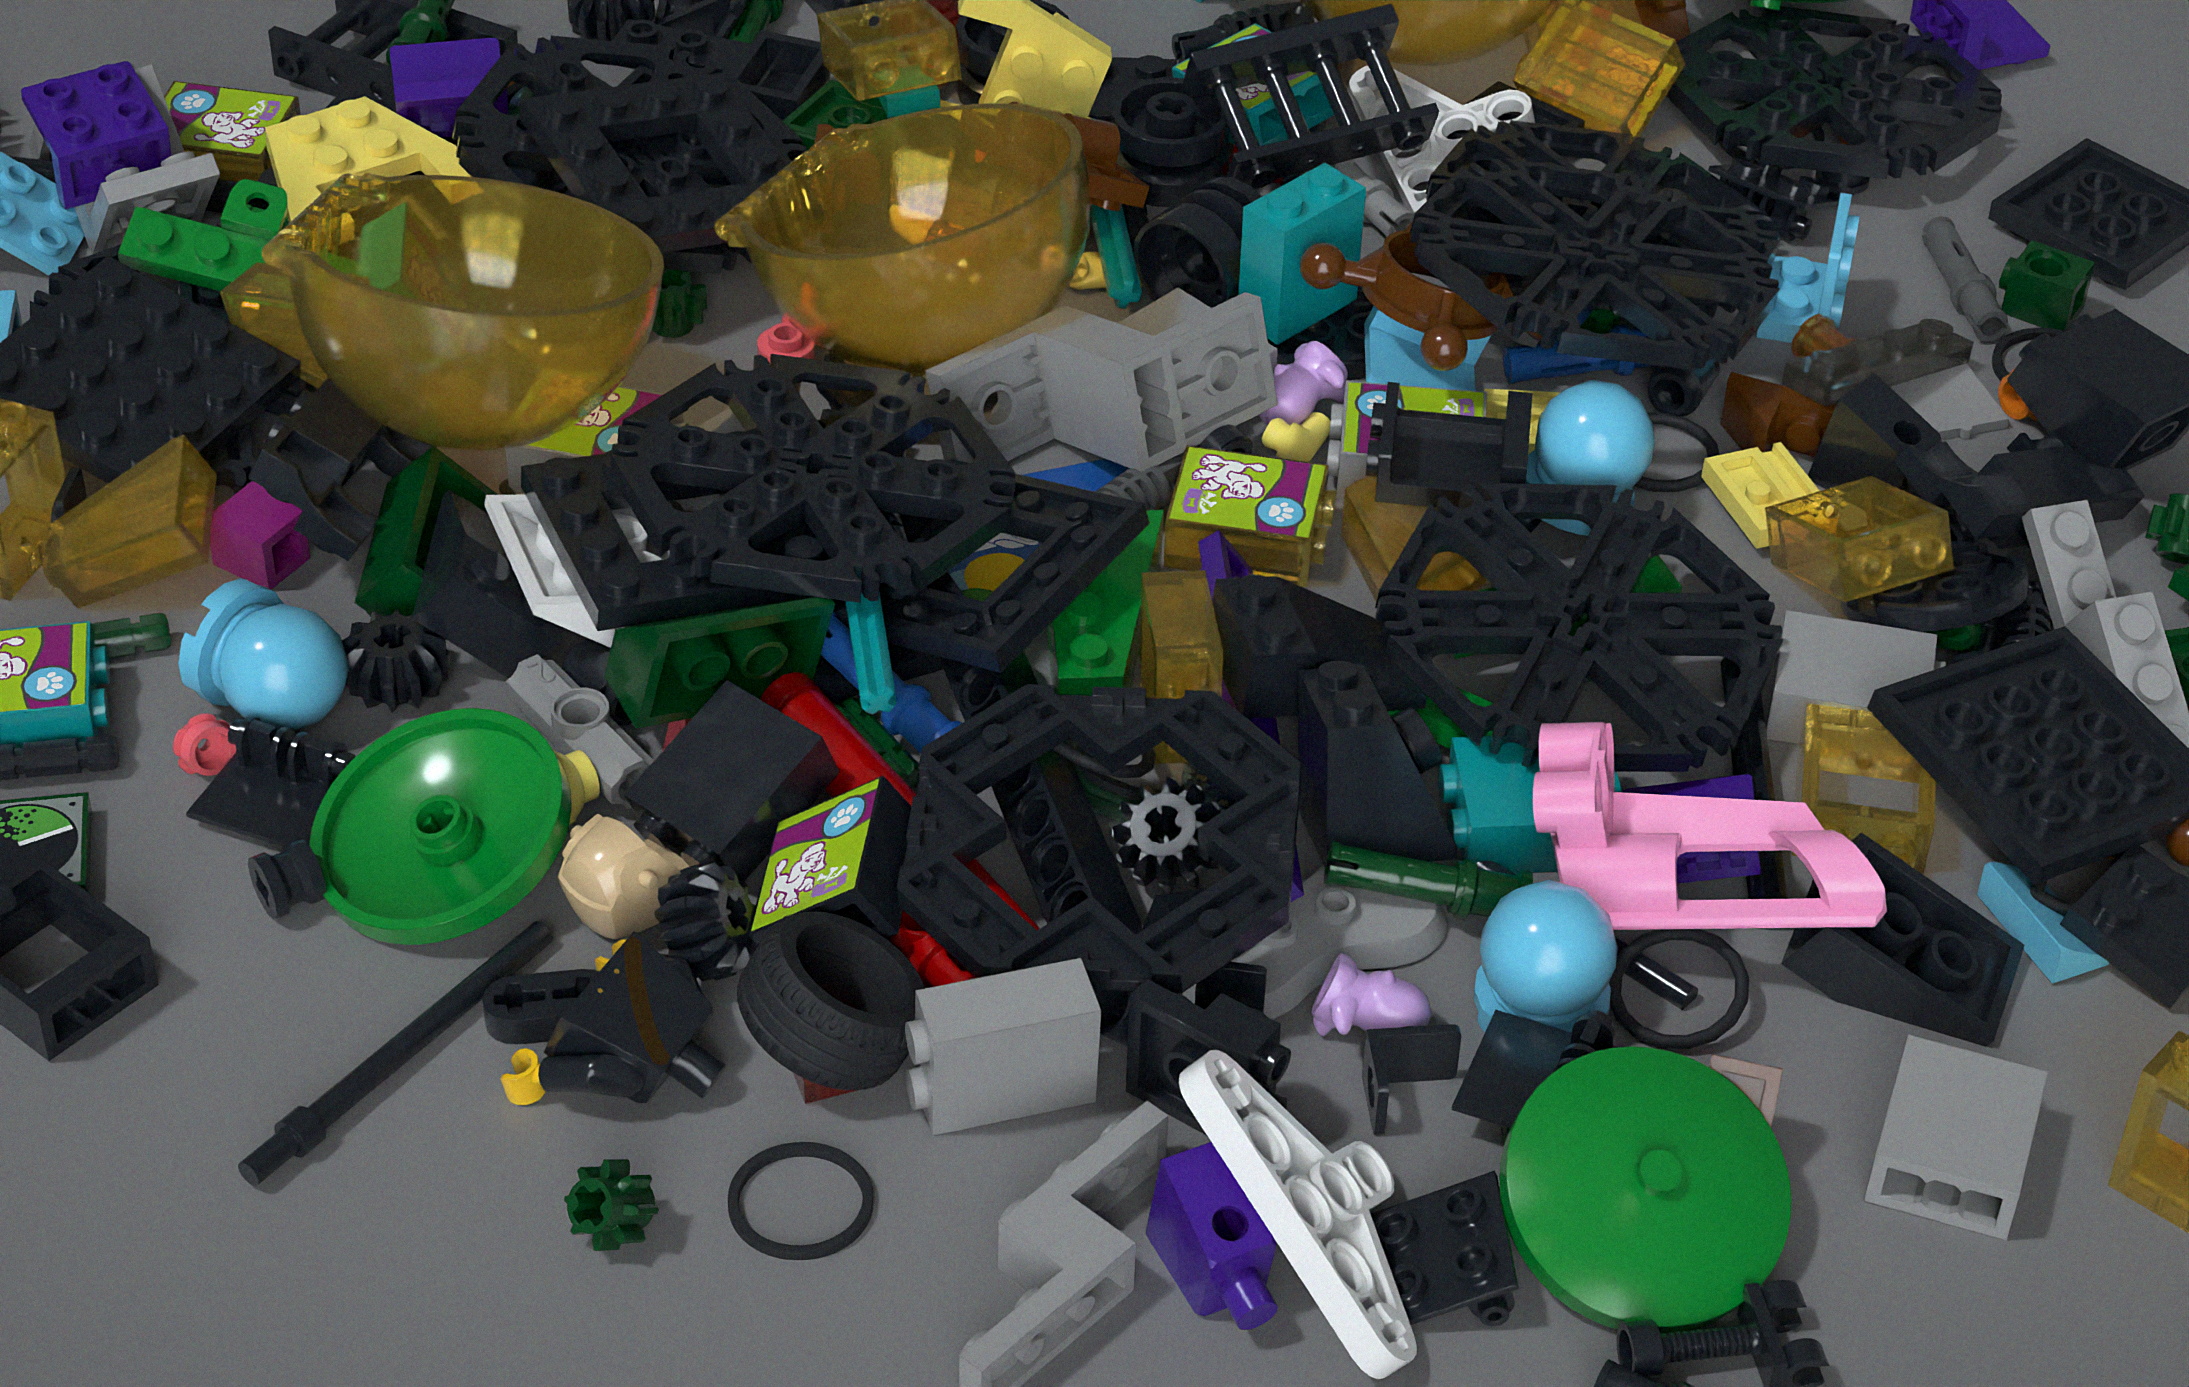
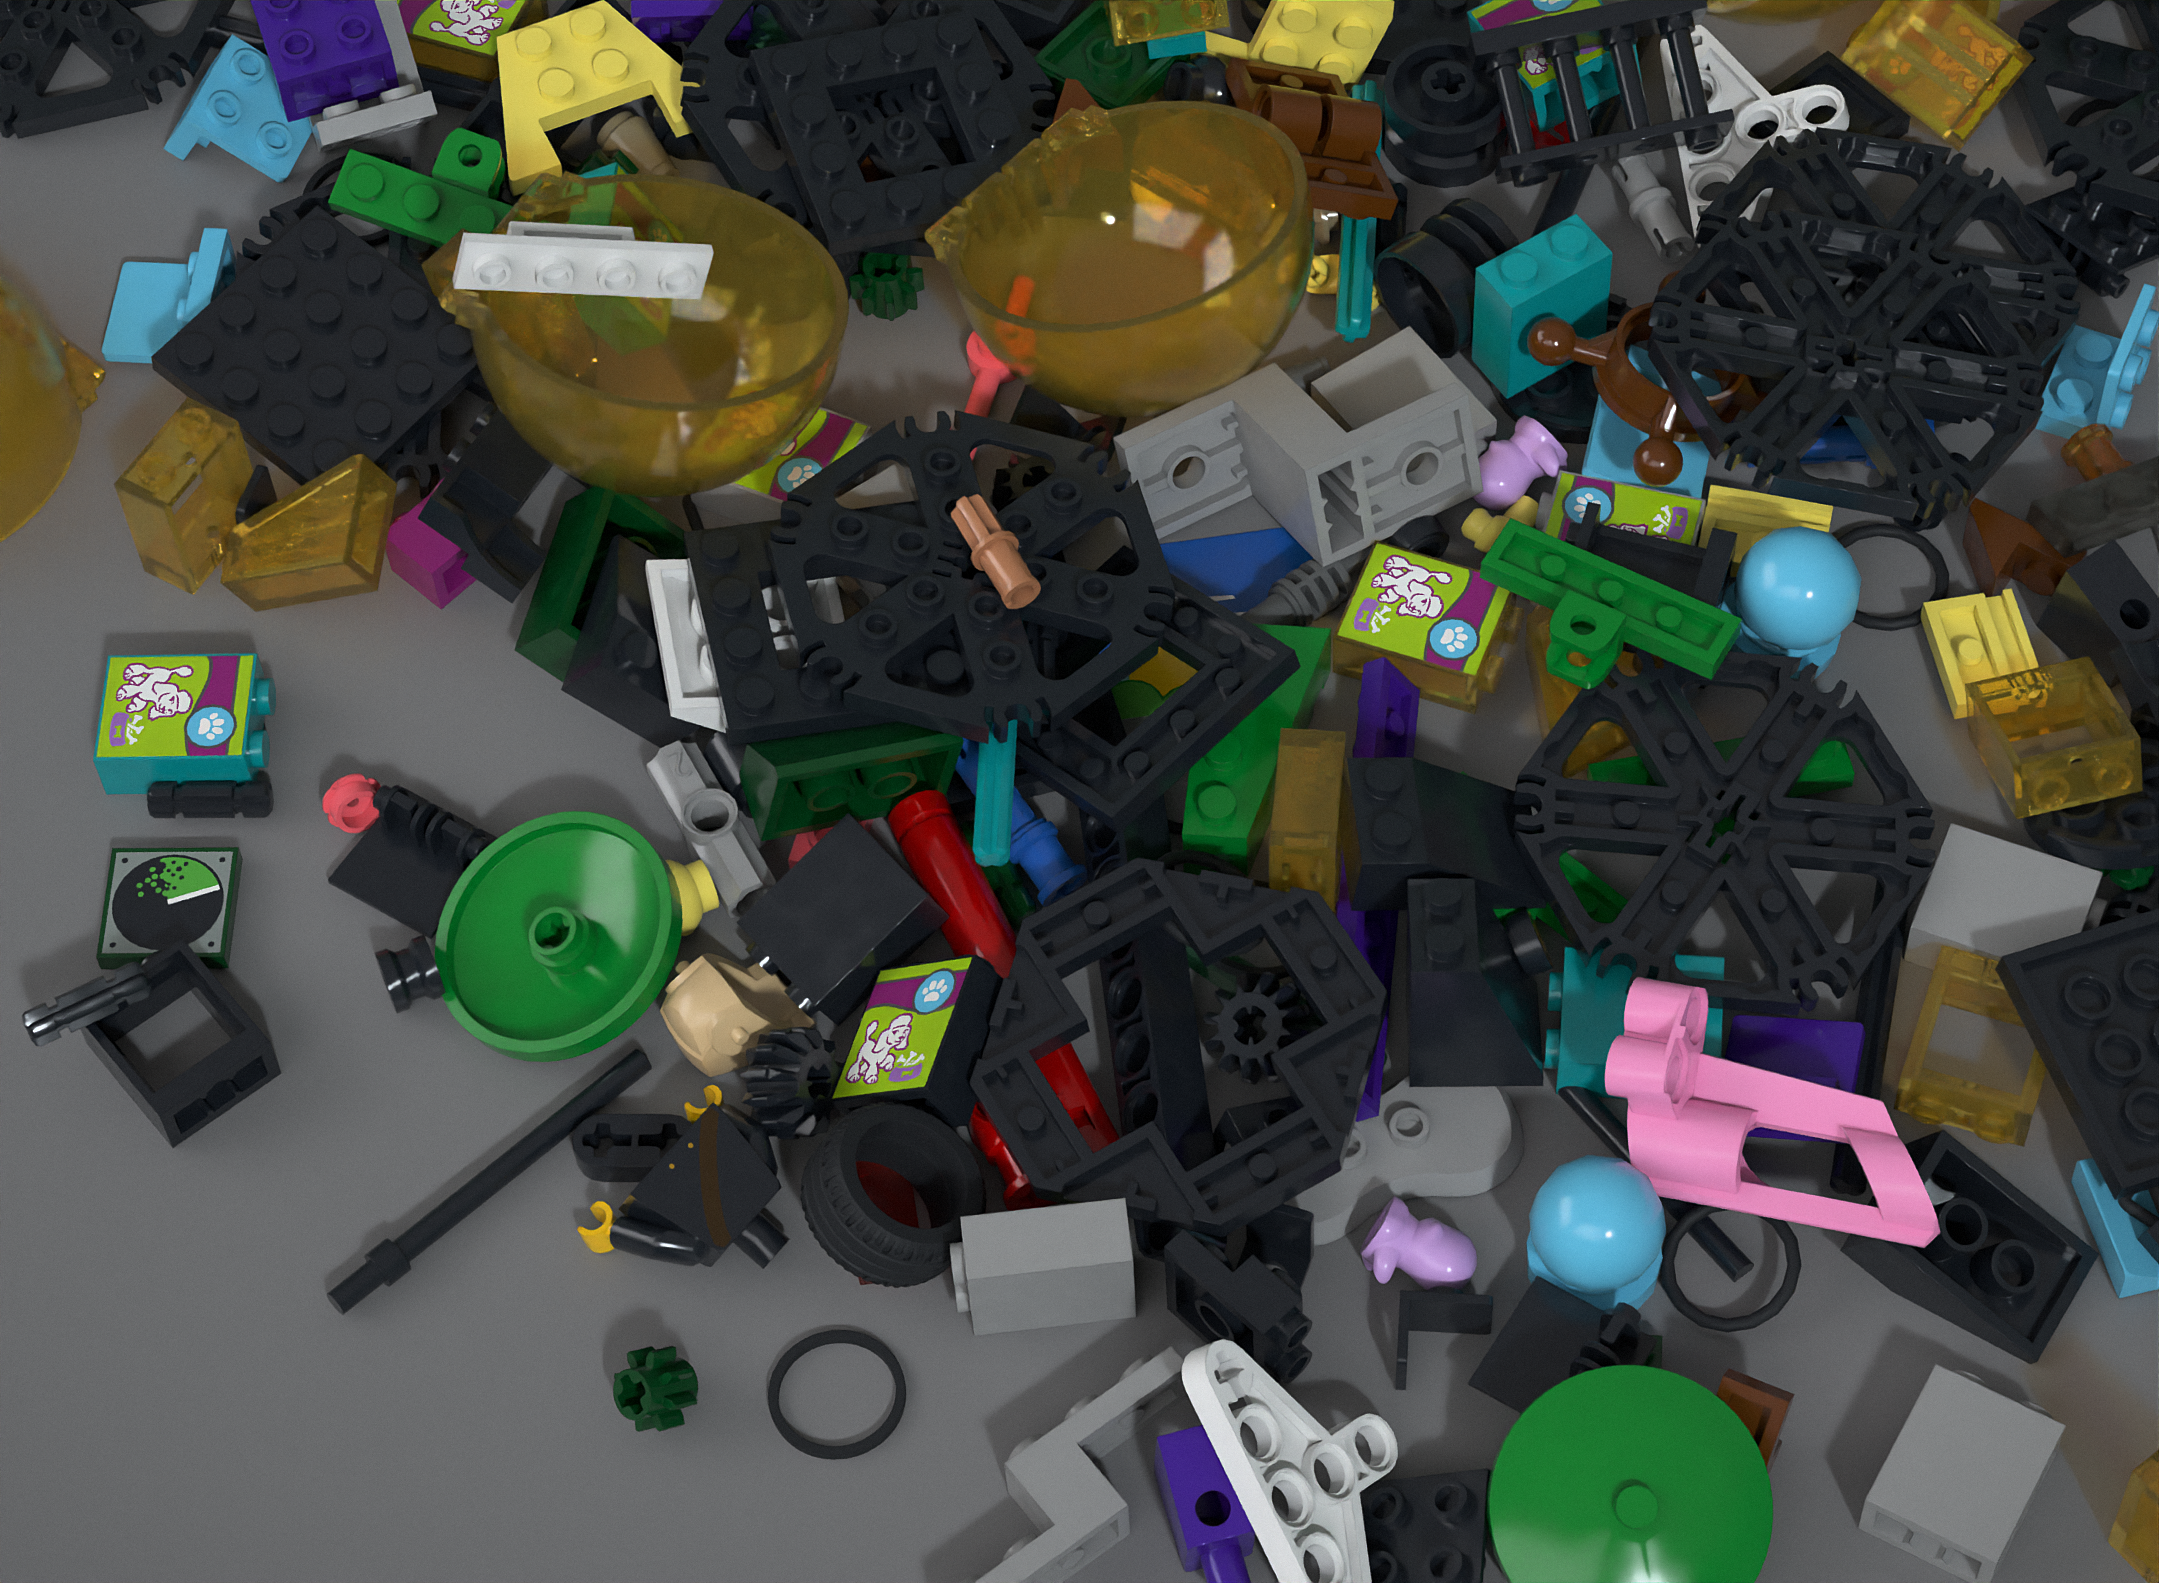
camera: 15 degrees right, 15 degrees up
(123, 637) = (291, 658): dark green axle -> none
(264, 657) = (417, 718): medium azure tile -> none
(395, 660) = (543, 722): black gear -> none
(400, 219) = (580, 262): none -> white bracket
(840, 442) = (995, 551): none -> nougat axle
(1430, 450) = (1605, 605): none -> green plate
(1461, 888) = (1537, 1124): dark green pin -> none

